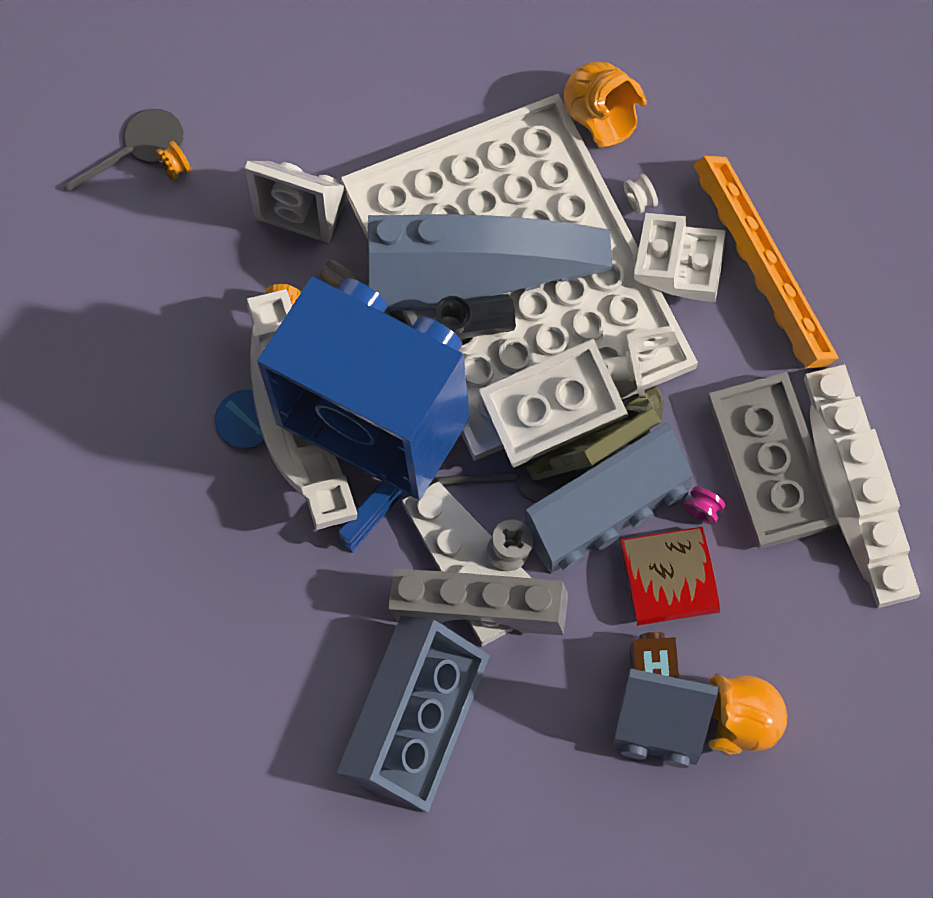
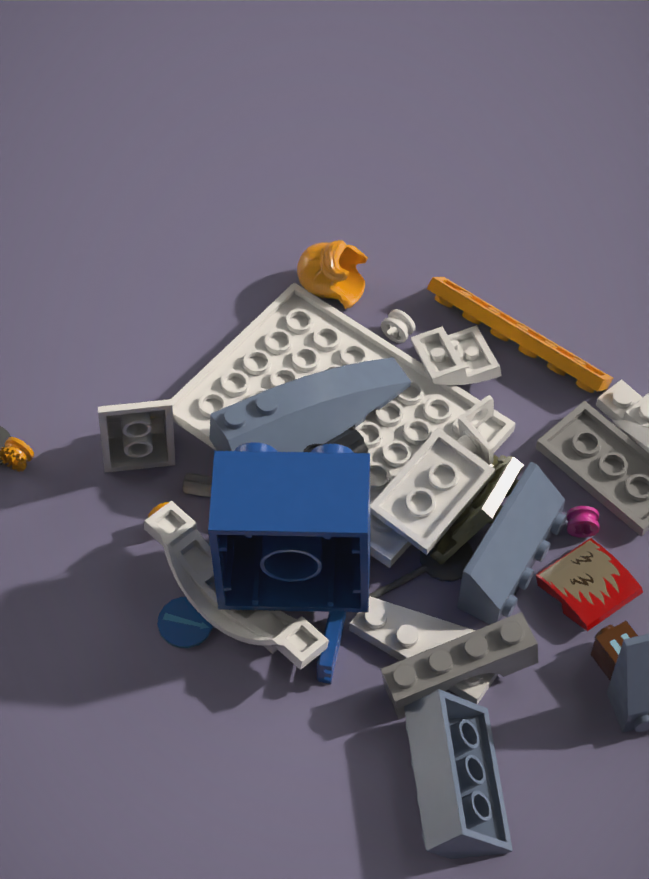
camera: 30 degrees left, 15 degrees down
(510, 555) = (463, 620): light grey wheel -> none

